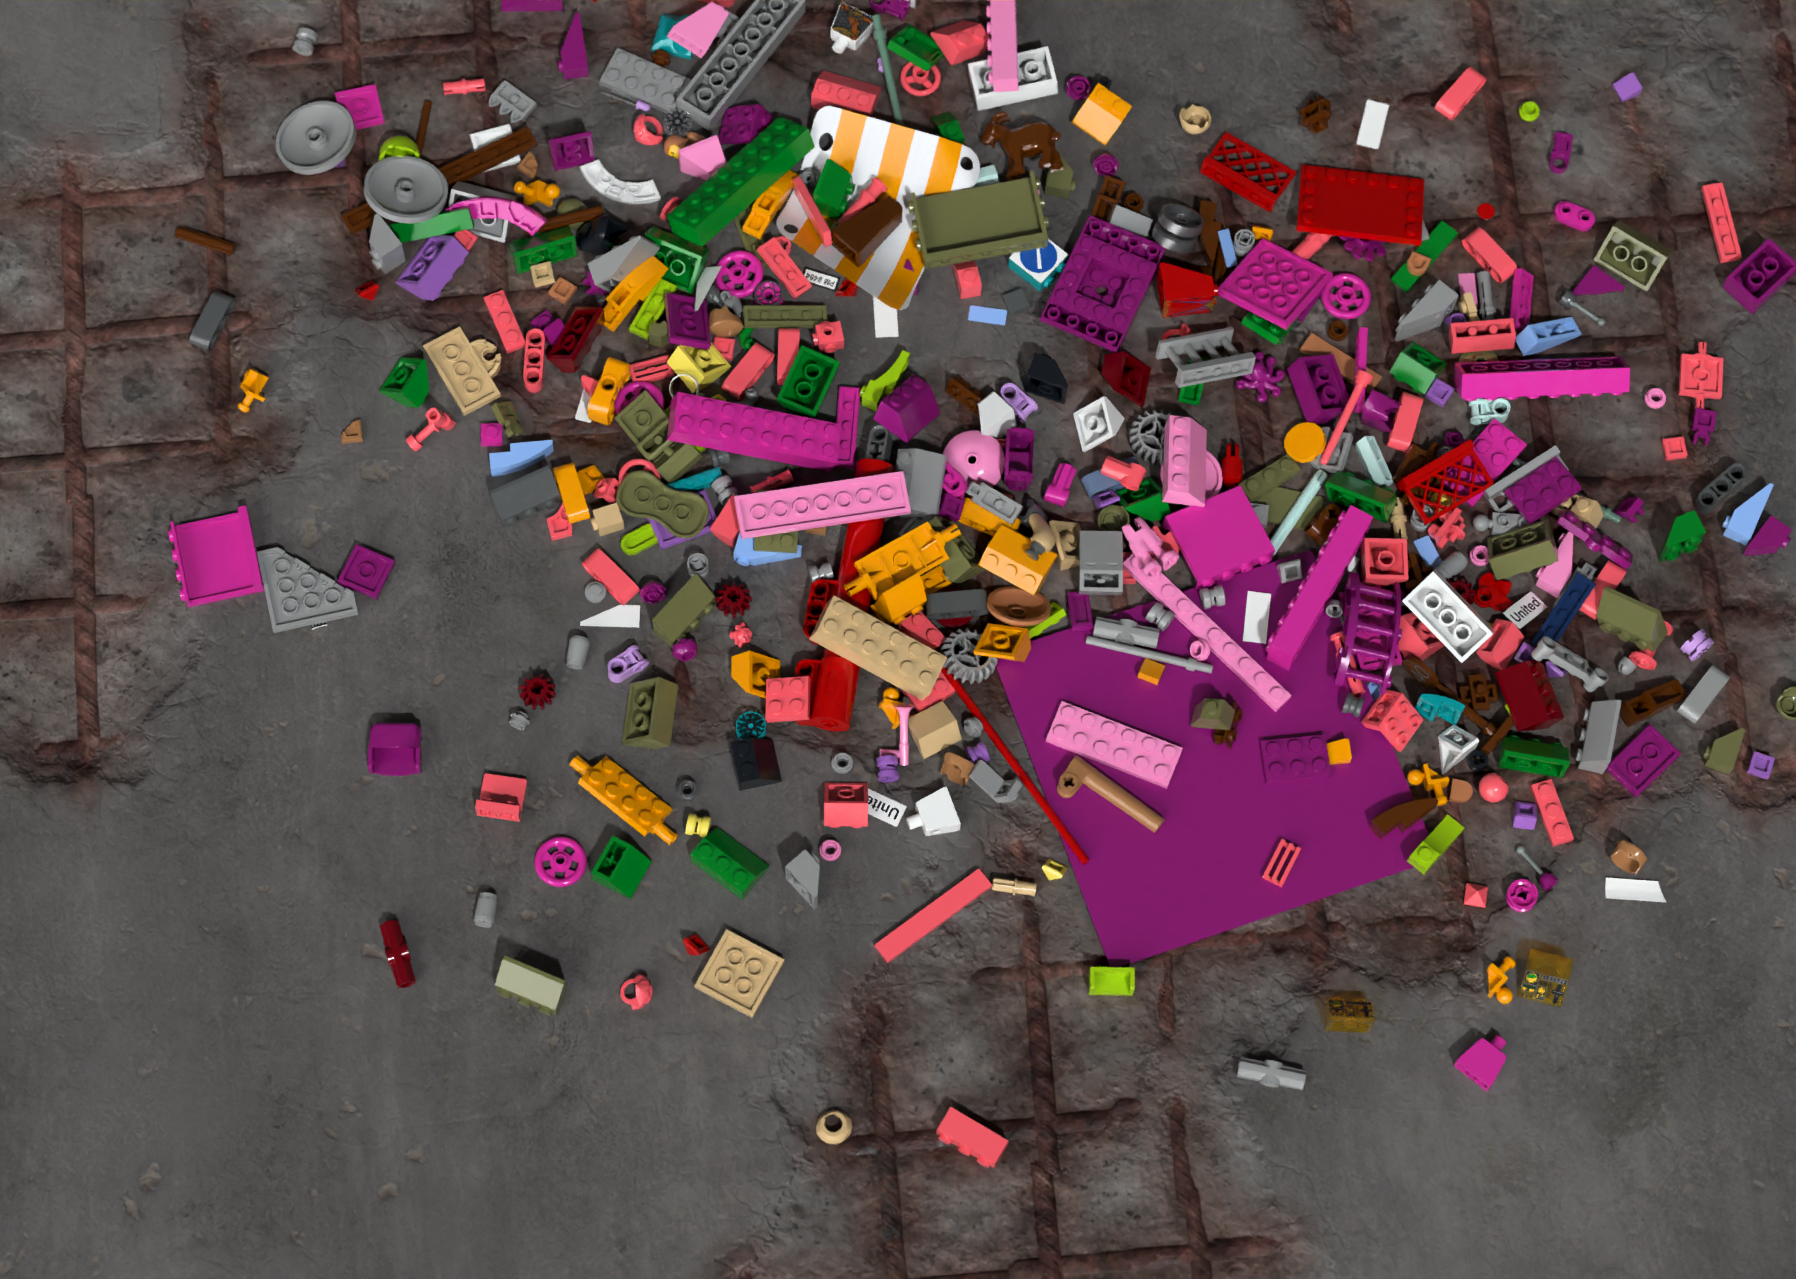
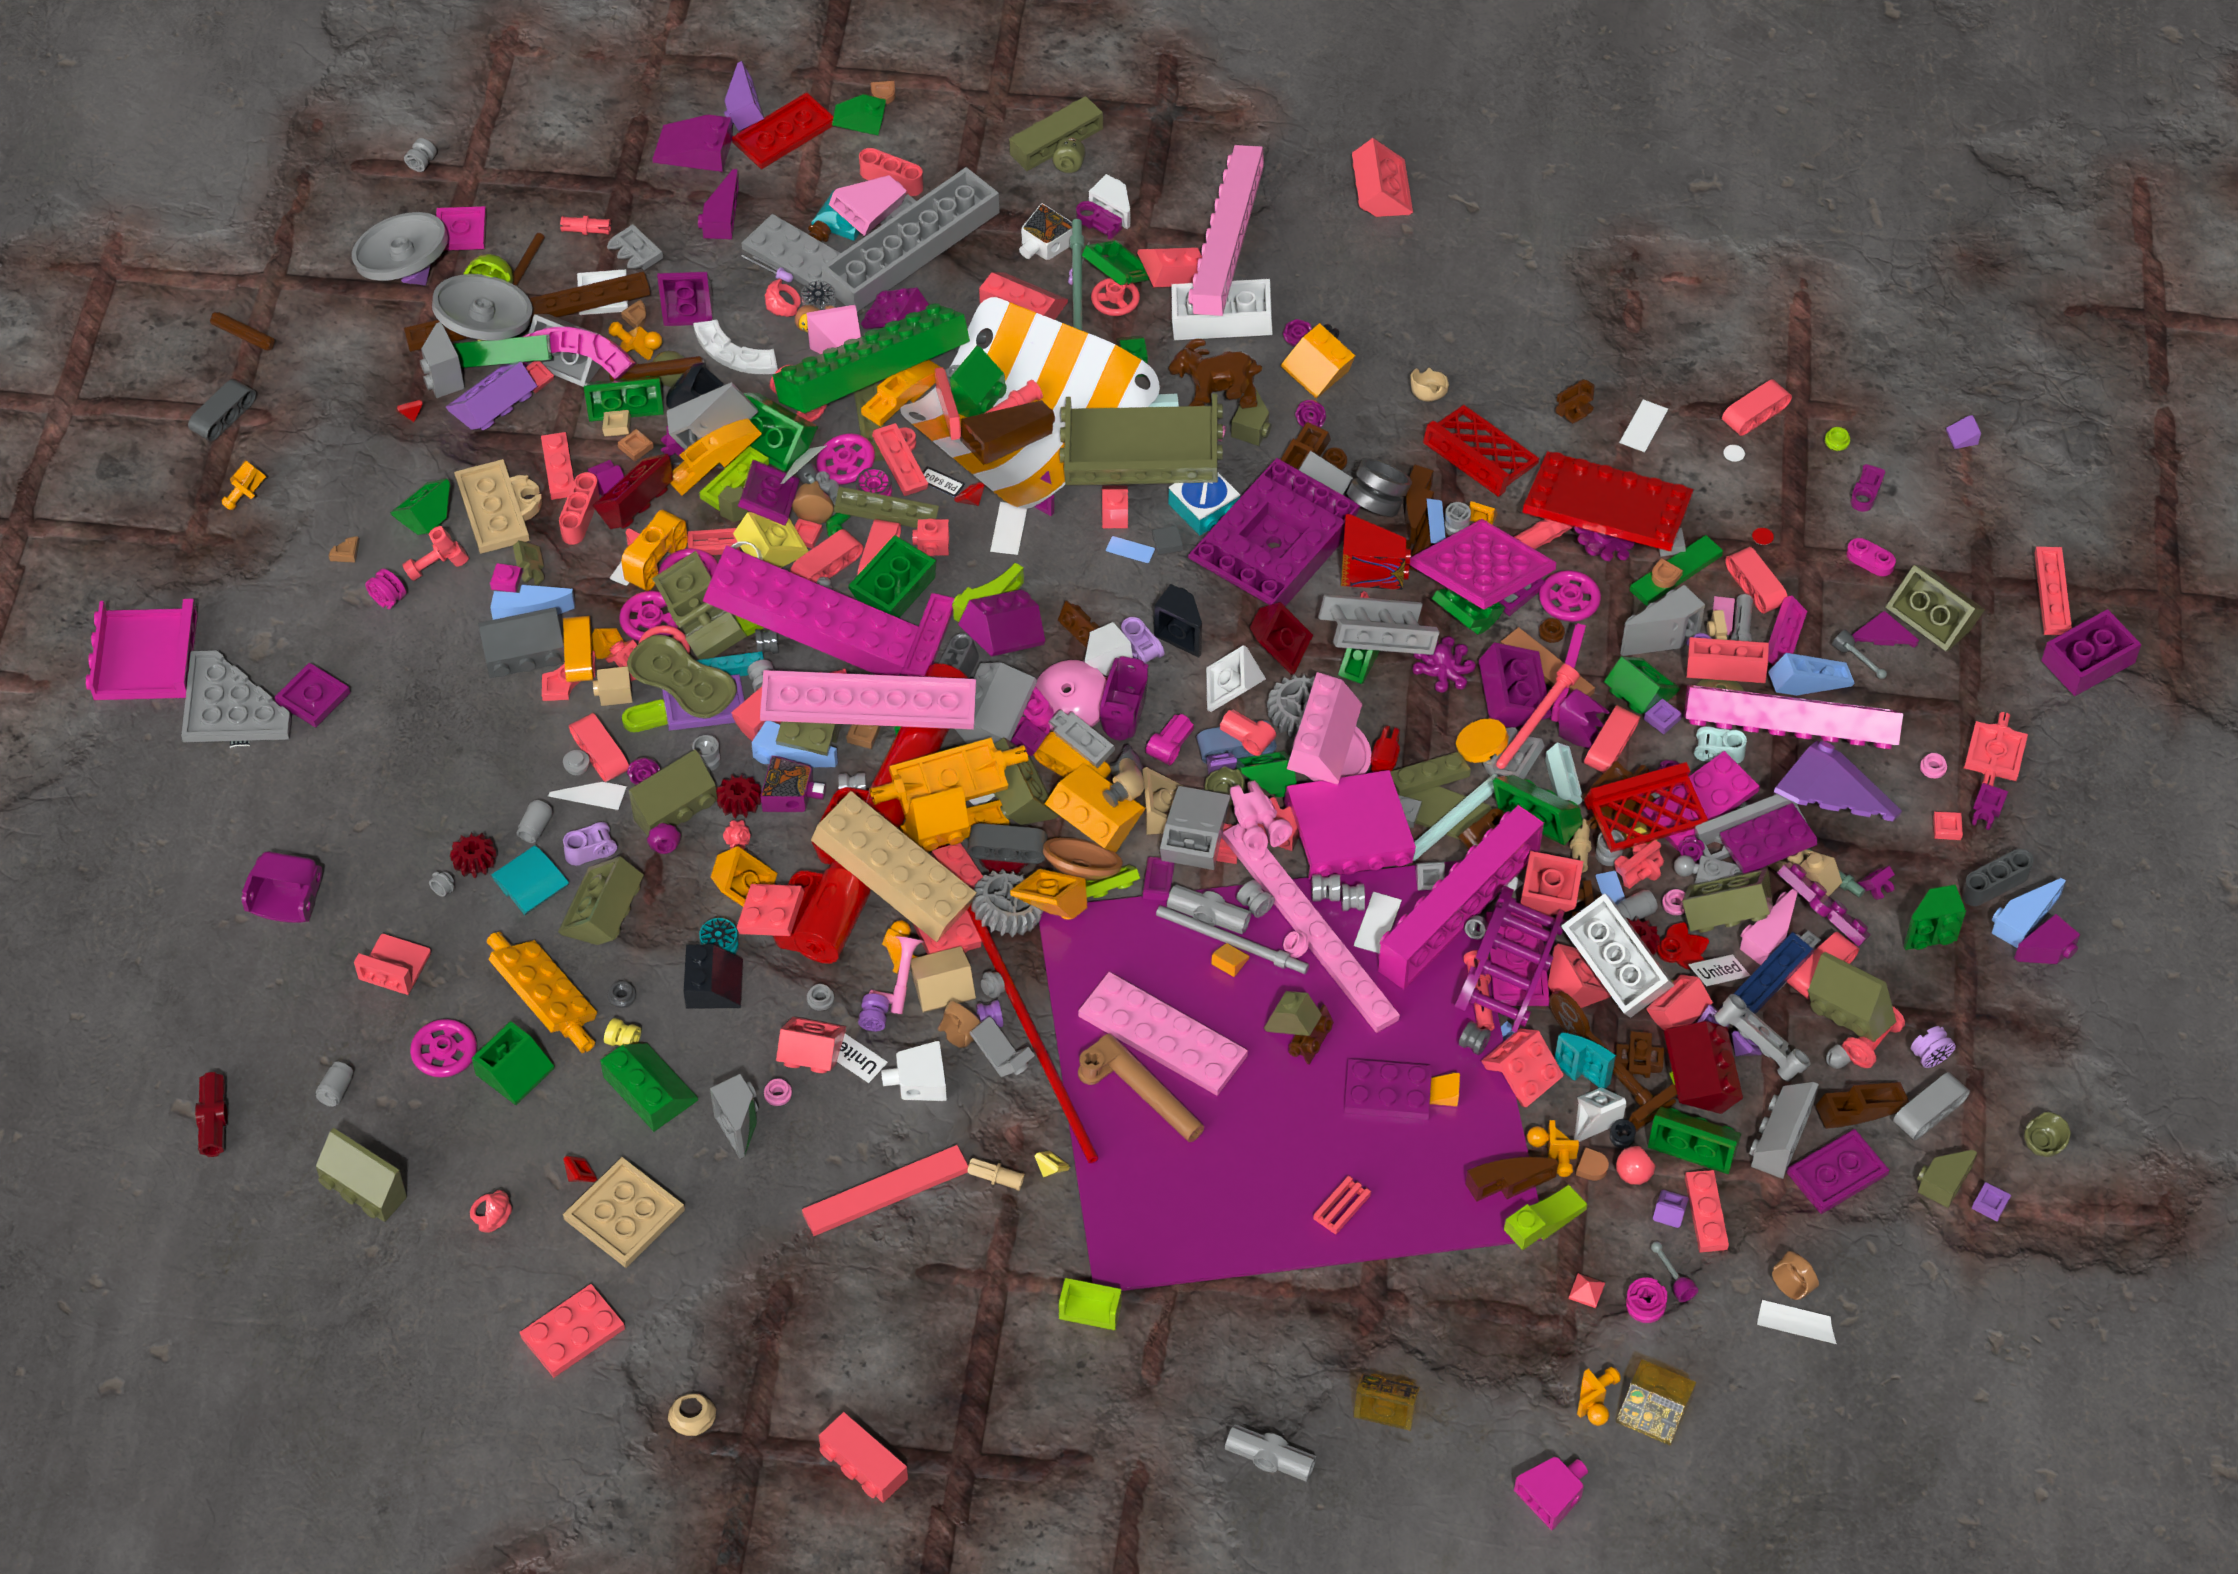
camera: 15 degrees right, 15 degrees down
(398, 465) = (385, 588): none -> dark pink wheel
(588, 703) = (530, 879): none -> teal slope
(605, 460) = (634, 604): none -> dark pink plate
(725, 1077) = (572, 1330): none -> coral plate
(772, 584) = (789, 786): none -> torso
(1235, 601) = (1353, 897): none -> light grey wheel
(1449, 137) = (1734, 453): none -> white sticker
(1484, 506) = (1689, 841): none -> magenta plate
(1584, 434) = (1835, 783): none -> medium lavender slope

